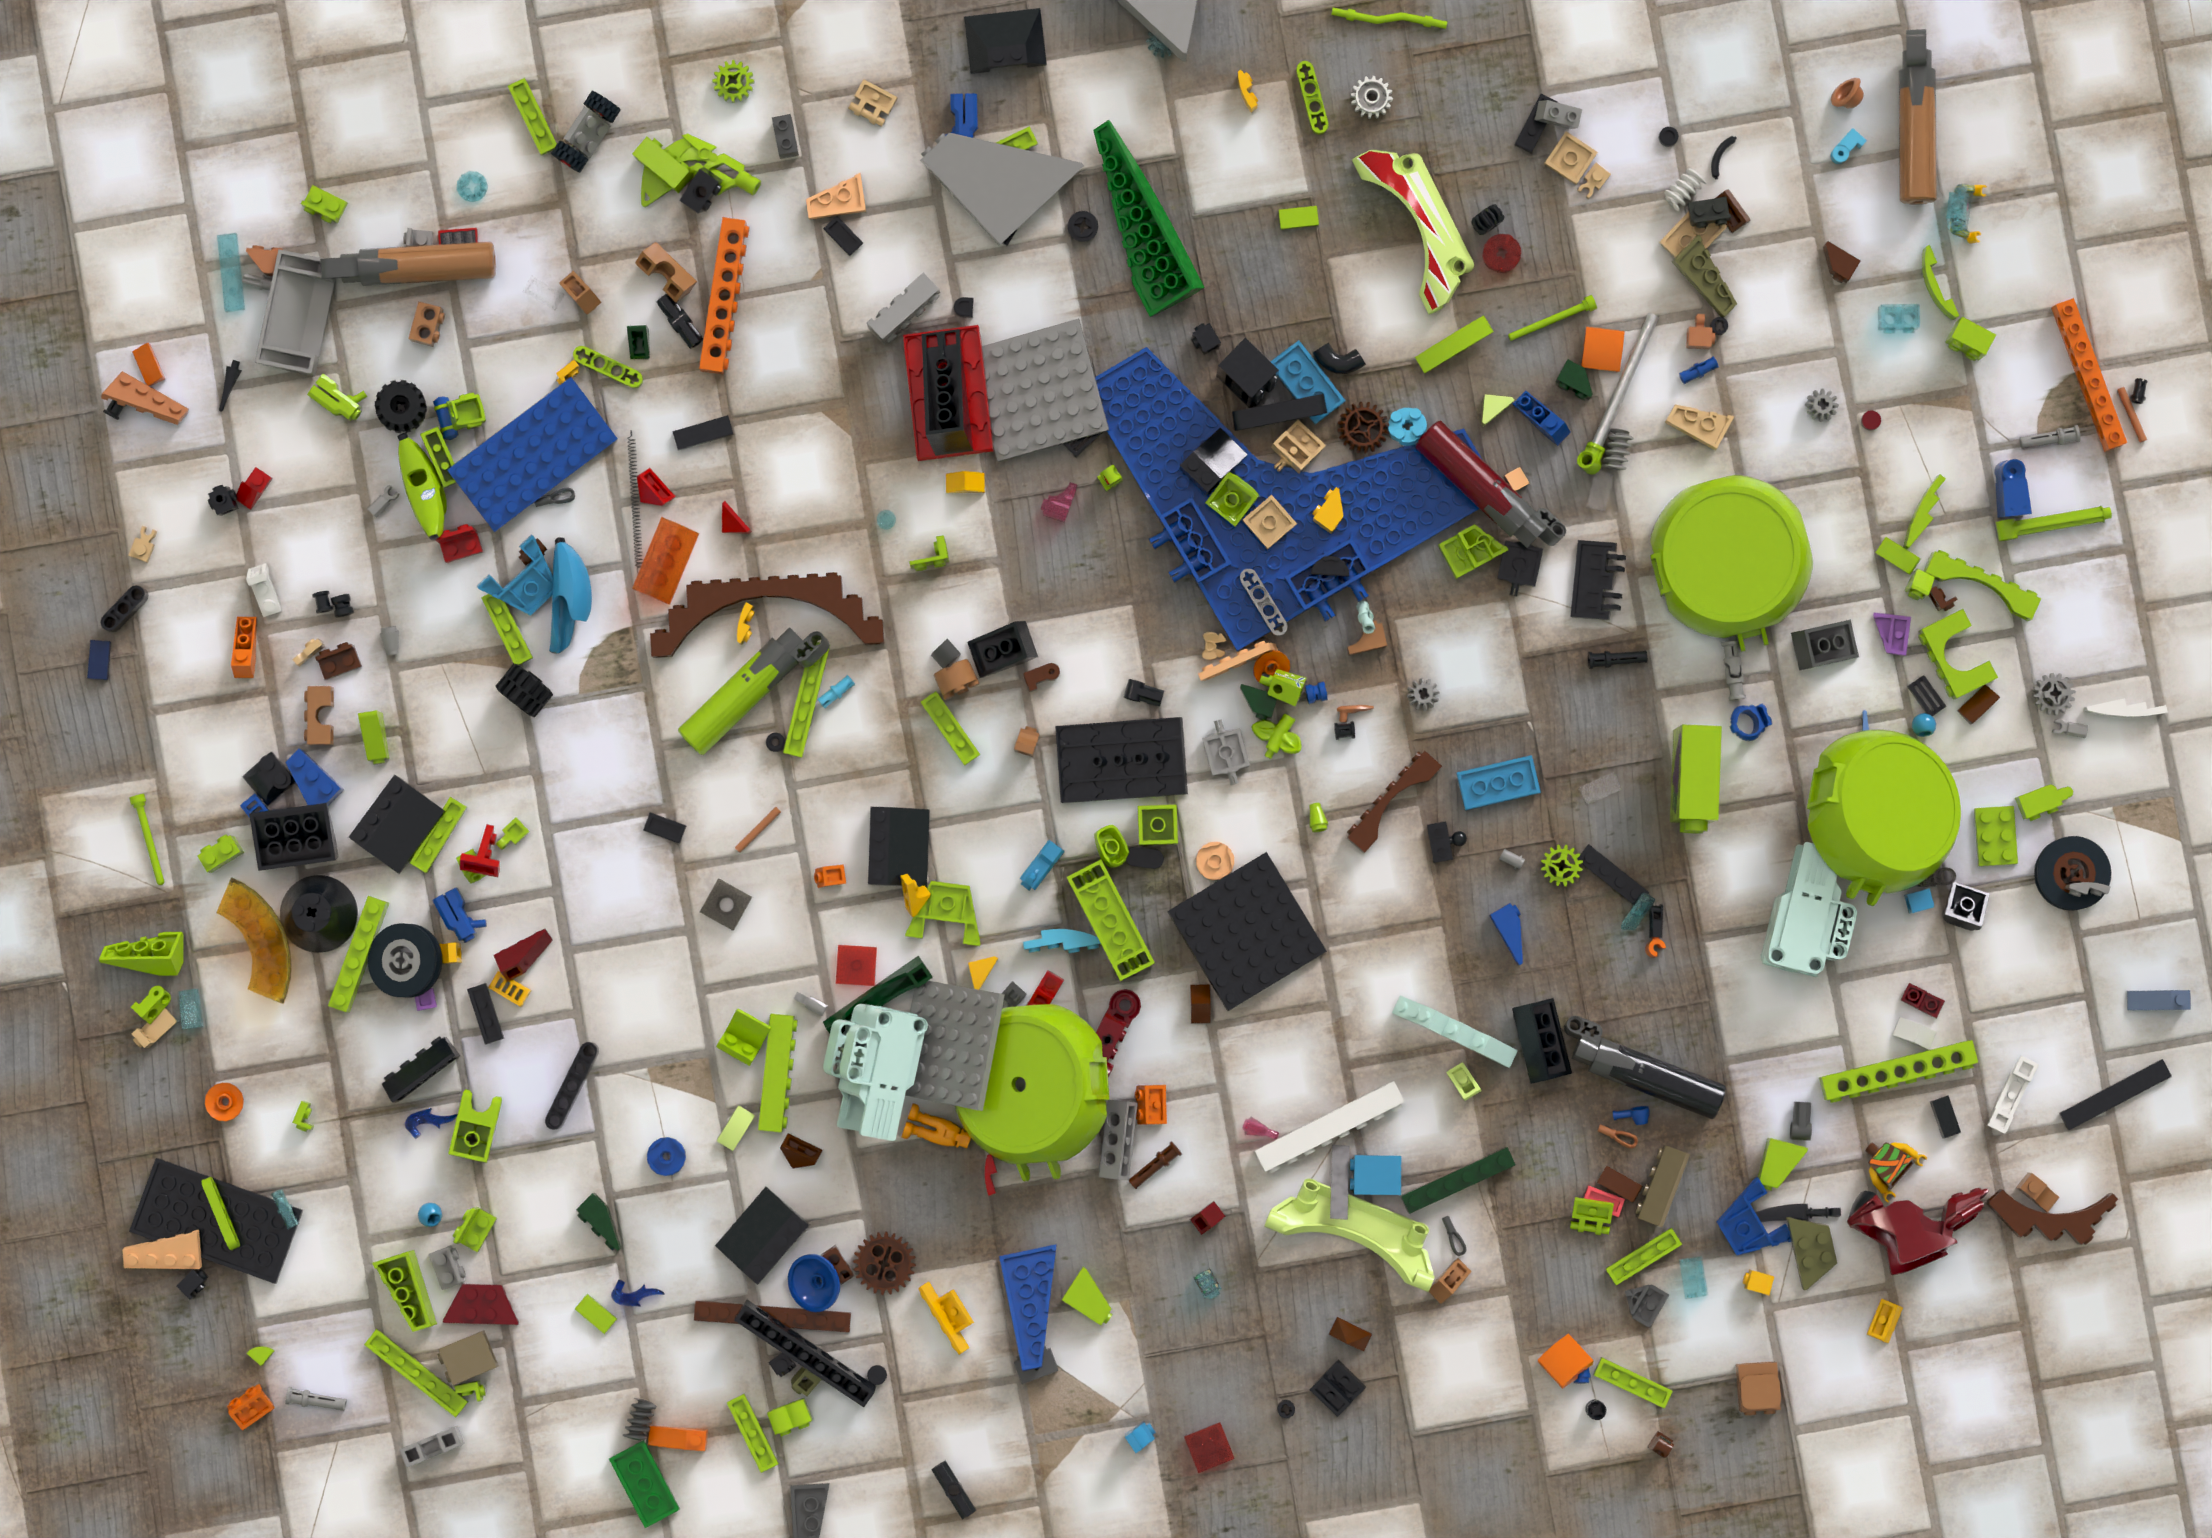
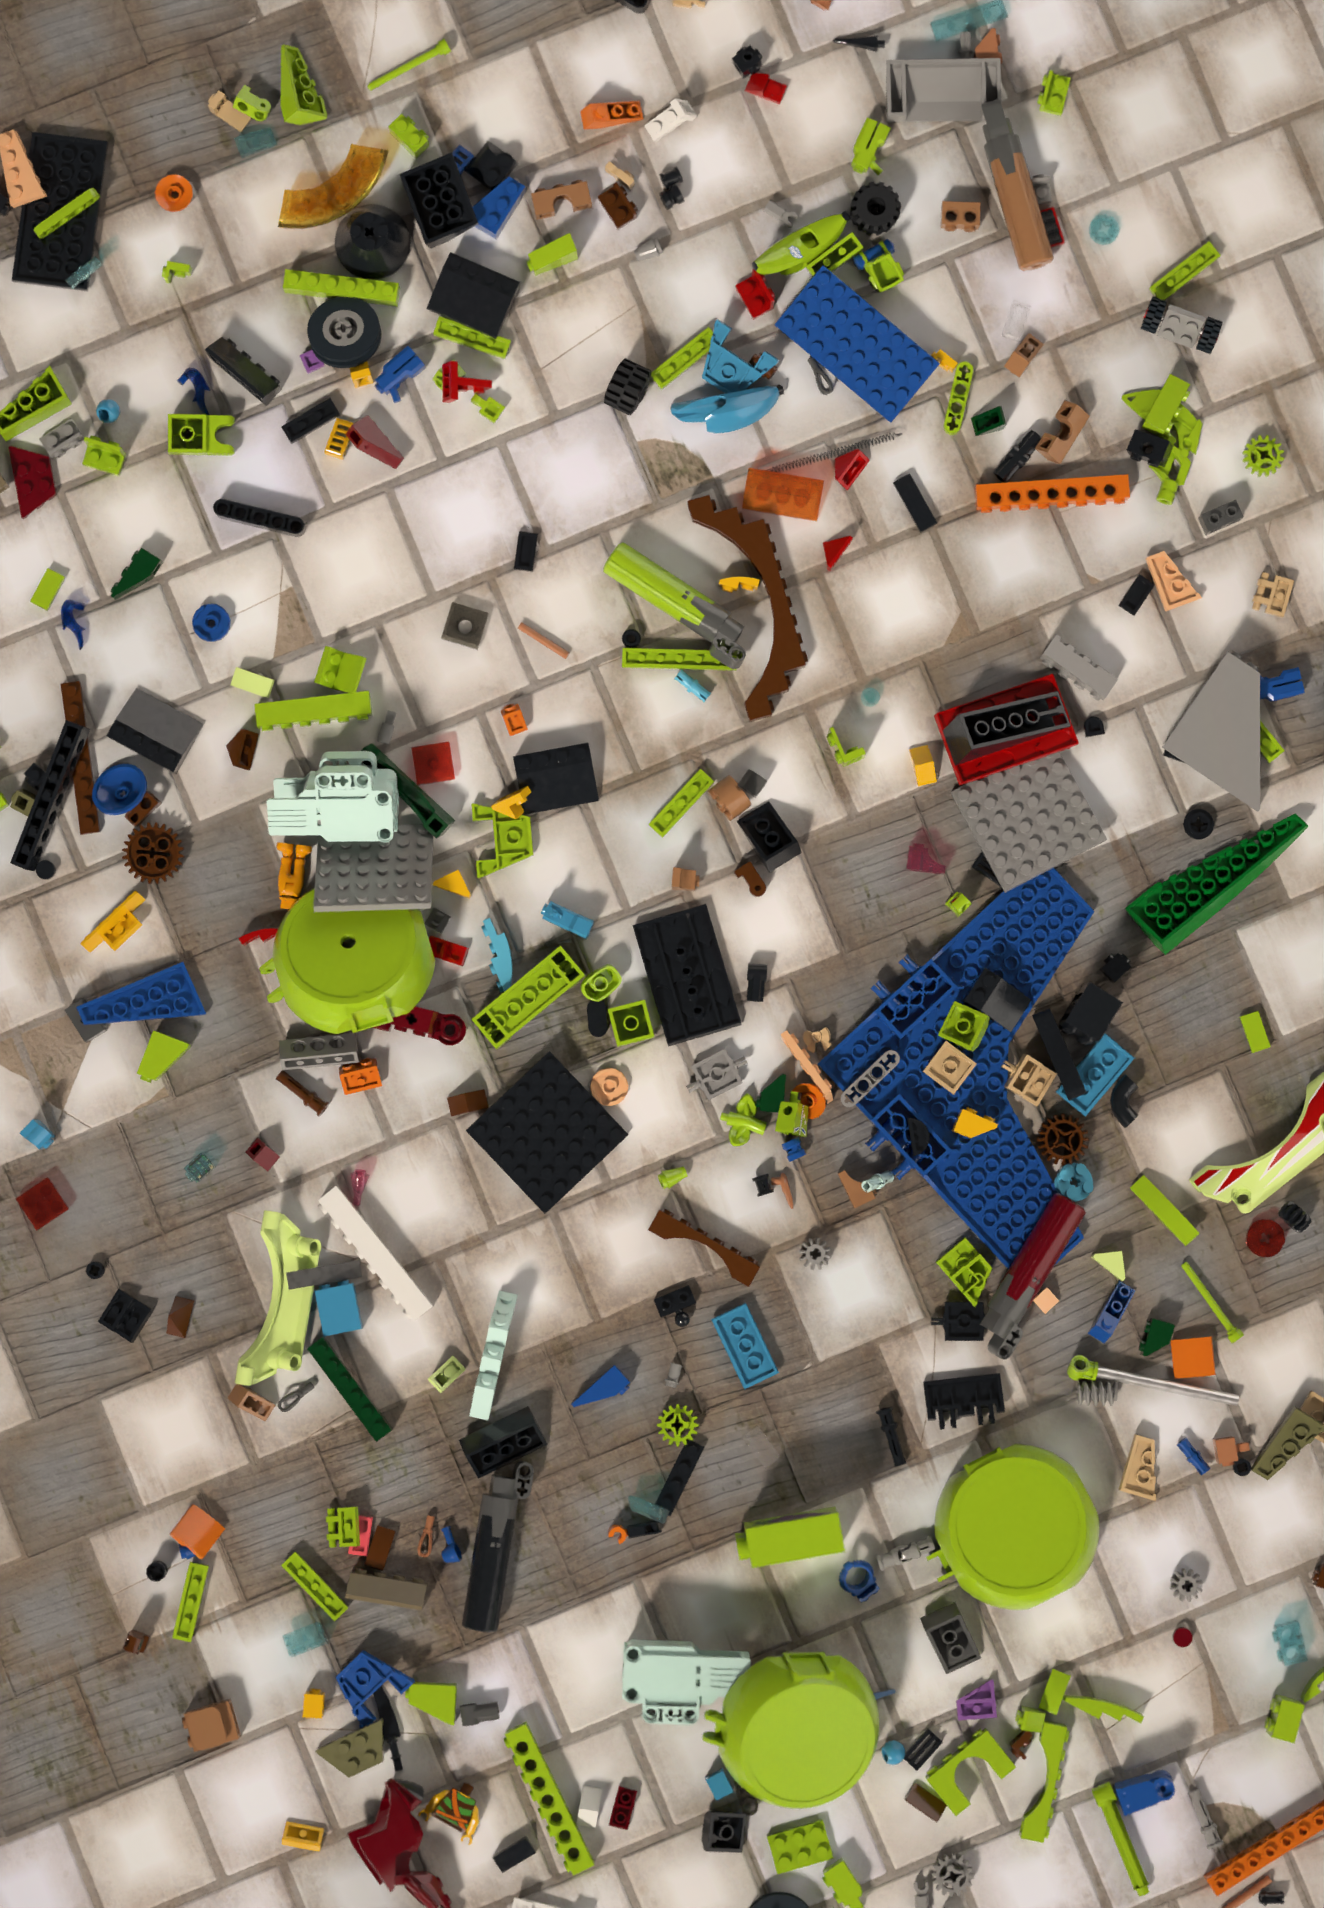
camera: 80 degrees right, 0 degrees up
(1646, 1303) = (270, 1598): dark grey slope -> none

